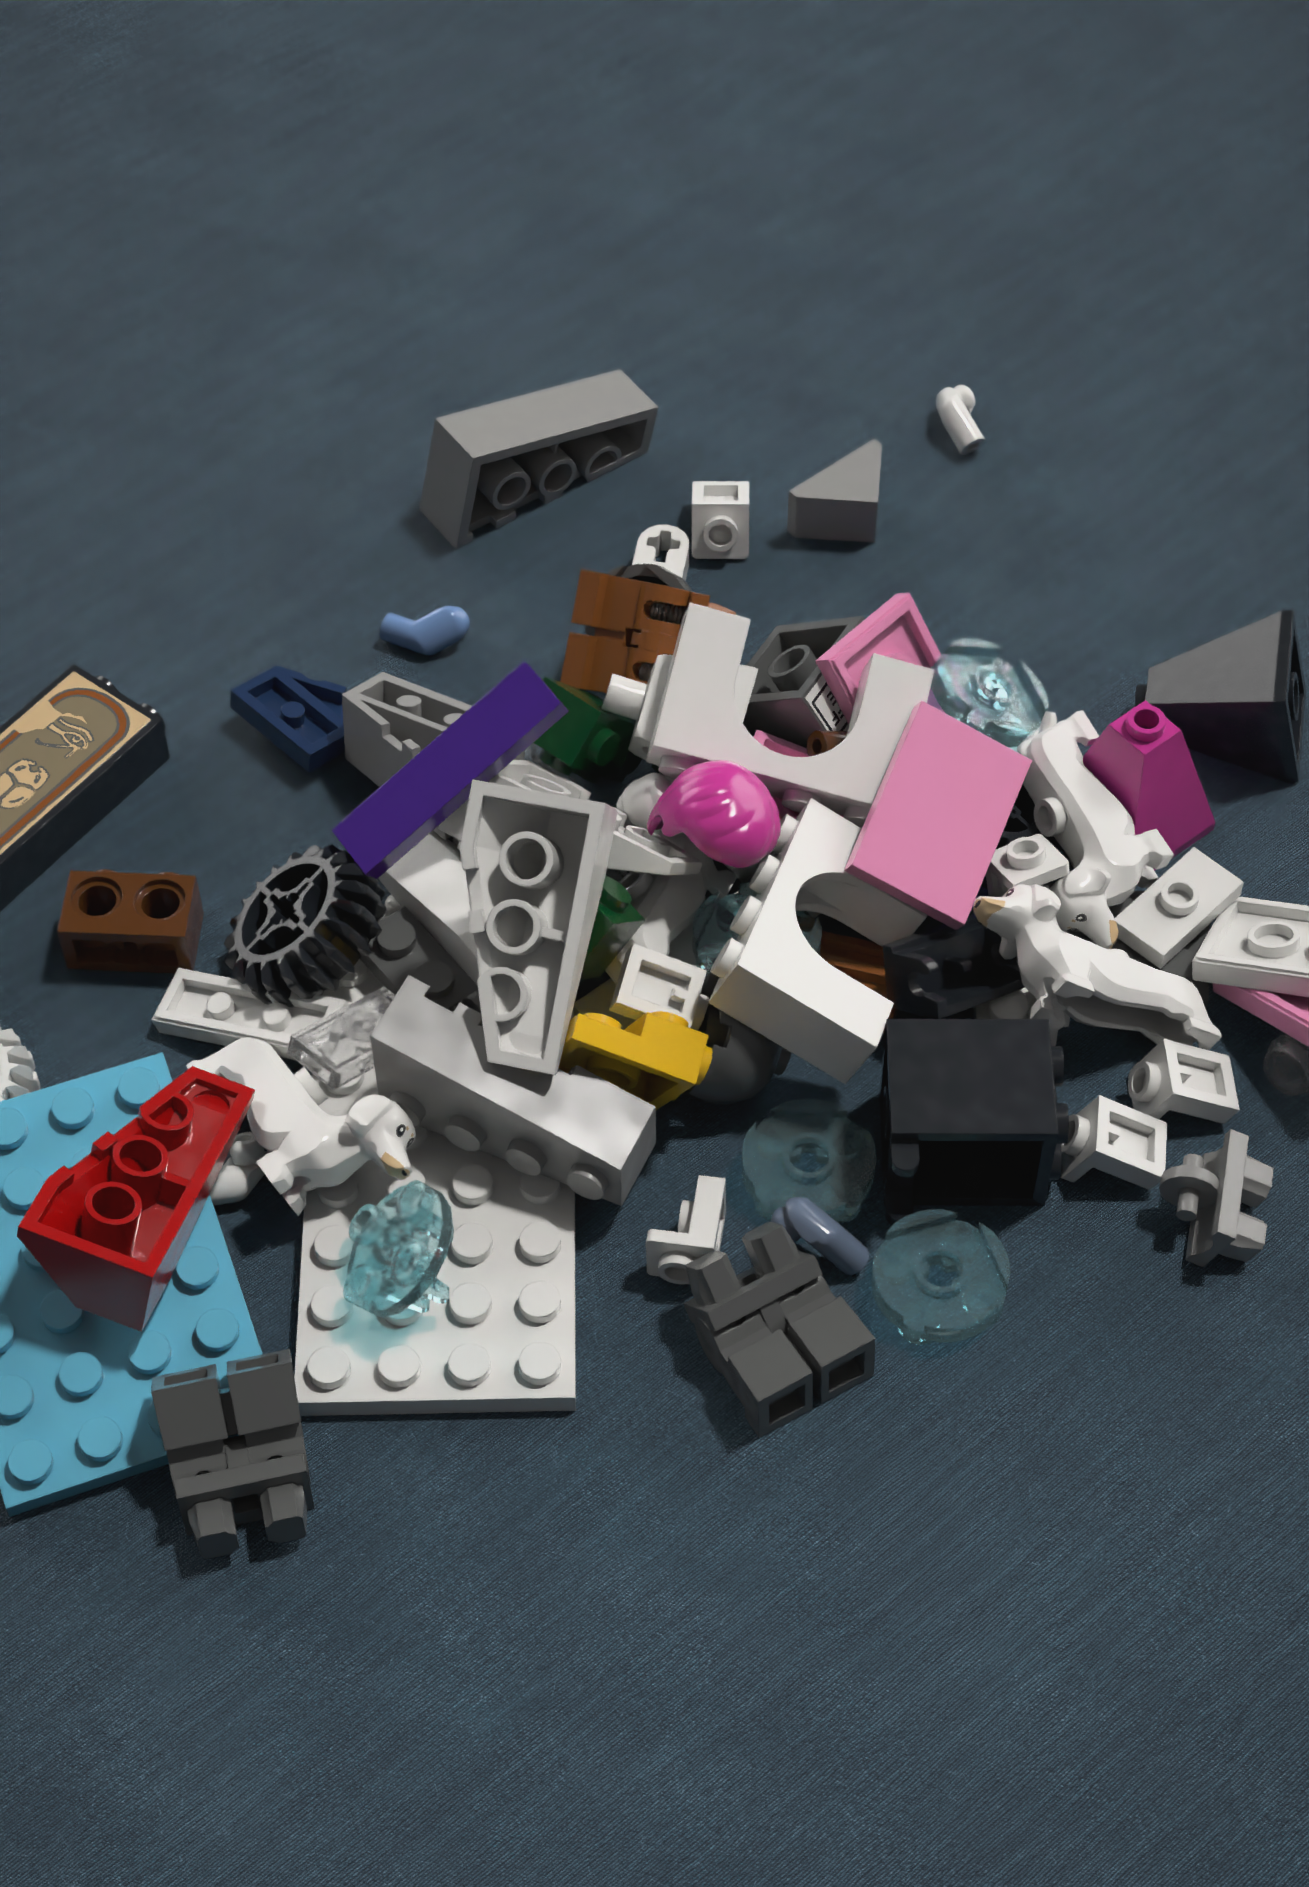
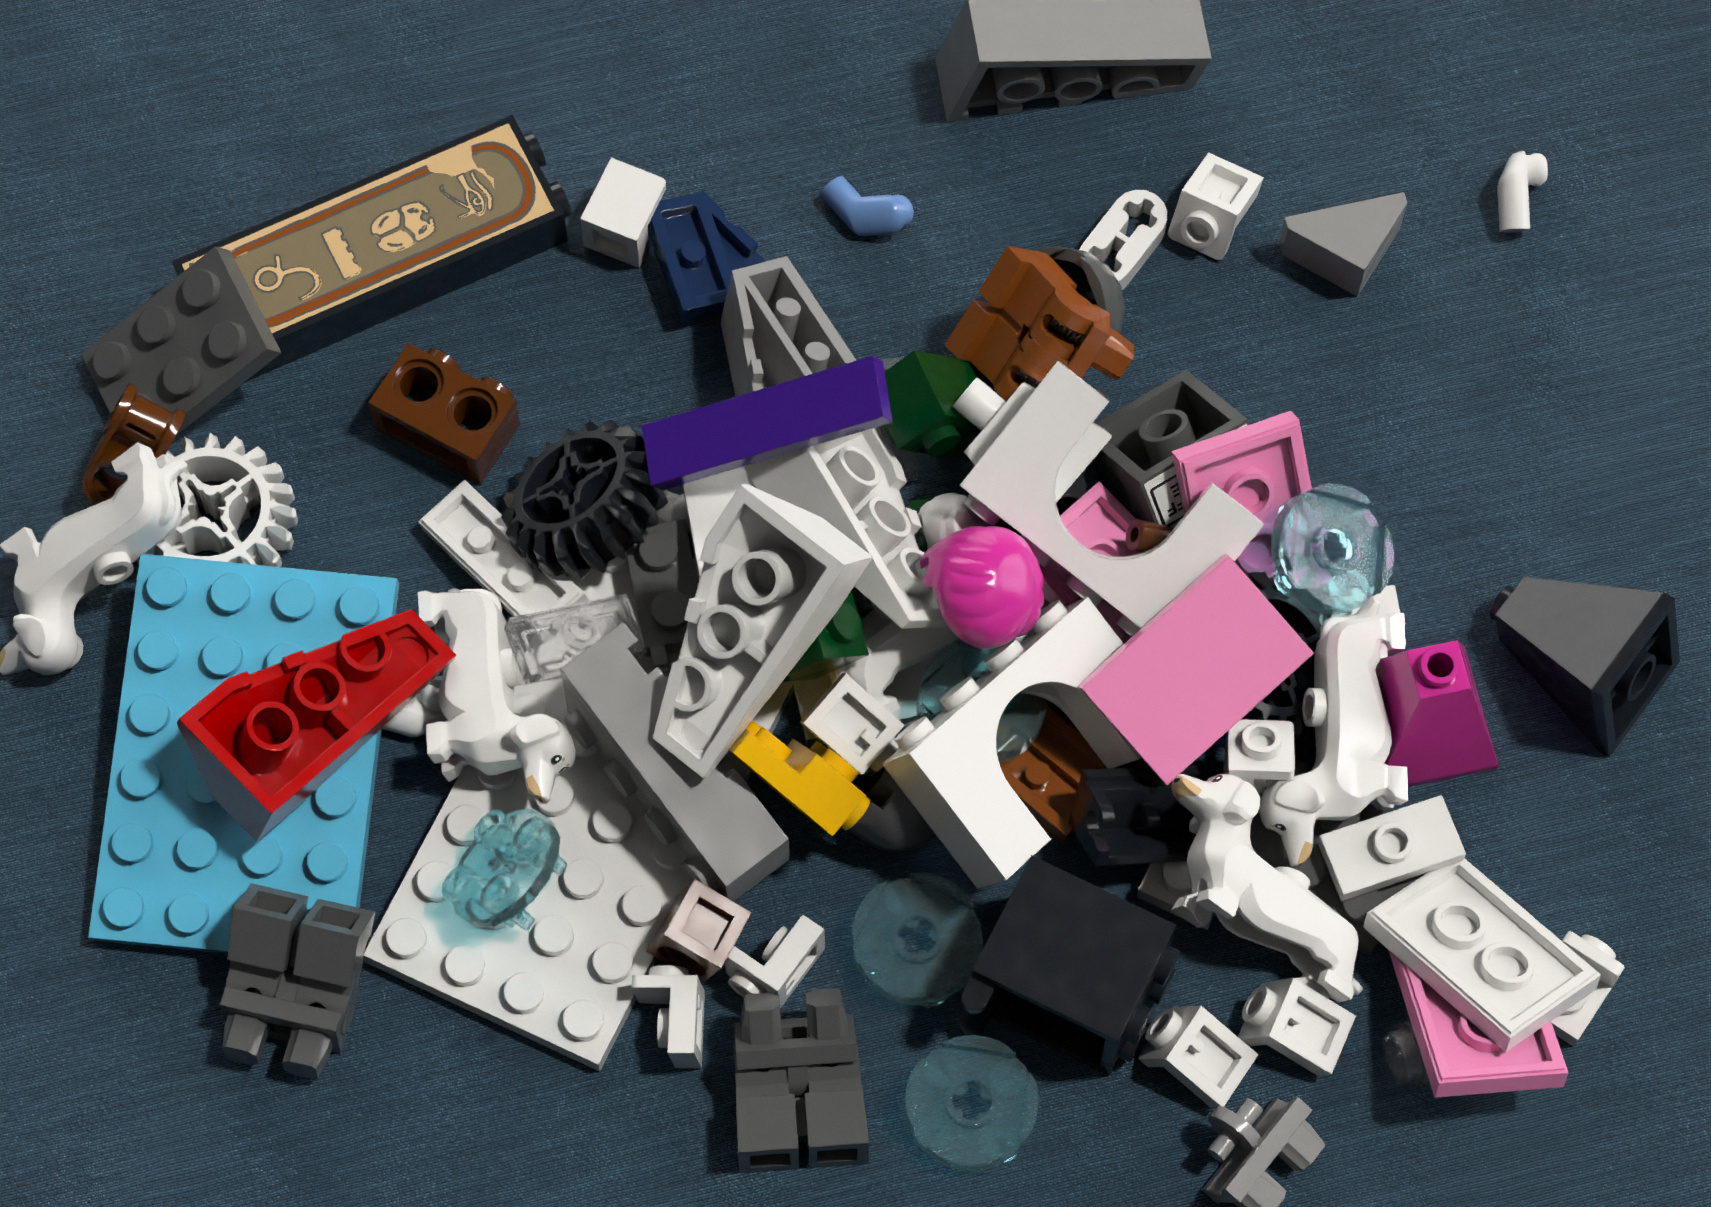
camera: 25 degrees right, 15 degrees up
(212, 708) = (620, 212): none -> white panel
(609, 1234) = (698, 931): none -> brick
(631, 1318) = (683, 1022): none -> white bracket
(808, 1221) = (884, 1016): sand blue arm -> none

